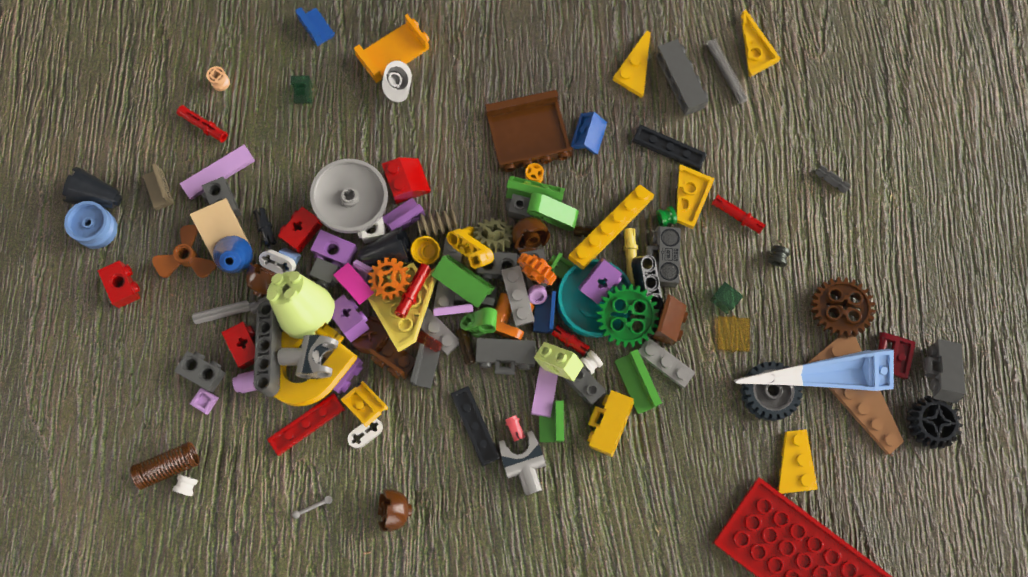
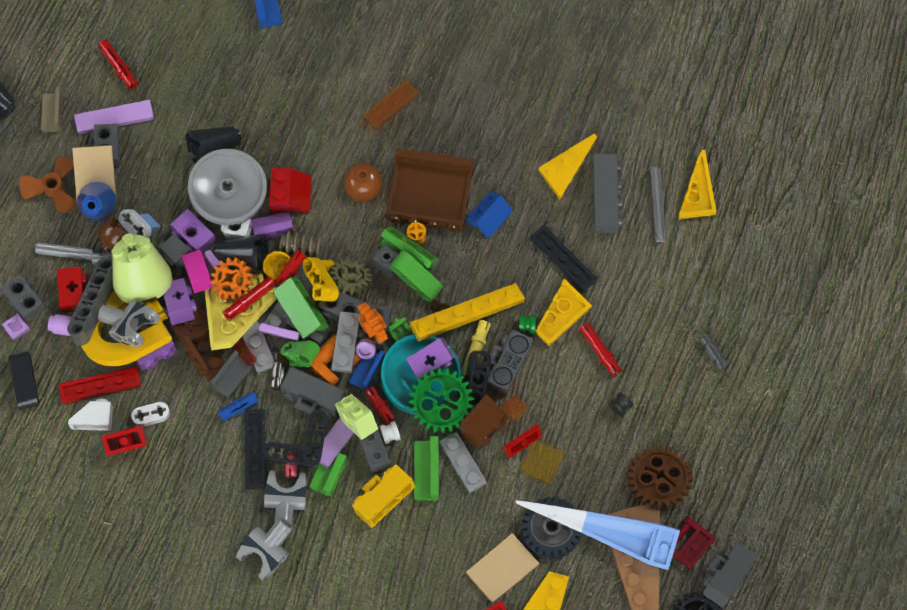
camera: 25 degrees right, 5 degrees down
(221, 82) = (152, 30): light nougat wheel -> none
(232, 449) = (24, 380): none -> black beam
(264, 227) = (136, 186): black pin -> none
(299, 239) = (161, 208): red brick -> none
(302, 89) = (227, 66): clear green panel -> none
(312, 161) = (208, 140): none -> black cone
(313, 457) = (93, 416): none -> white slope
(328, 500) = (91, 461): light grey hinge -> none
(352, 469) = (125, 440): none -> red brick
(364, 404) = (160, 386): yellow plate -> none
(393, 510) = (147, 491): reddish brown cylinder -> none
(396, 81) = (320, 93): piece -> none
(400, 45) = (332, 60): light orange panel -> none
(438, 247) = (291, 267): none -> red pin
(442, 392) = (238, 406): none -> blue pin
(461, 70) = (391, 105): none -> clear orange plate
(467, 146) = (363, 182): none -> dark orange cylinder
(522, 413) = (302, 452): none -> black beam
(529, 233) = (384, 289): reddish brown cylinder -> none
(529, 515) = (267, 546): none -> light grey connector
(692, 296) = (514, 408): none -> clear orange bracket
(709, 322) = (522, 441): none -> red slope
(726, 298) = (548, 423): clear green panel -> none
(744, 446) = (502, 568): none -> tan tile

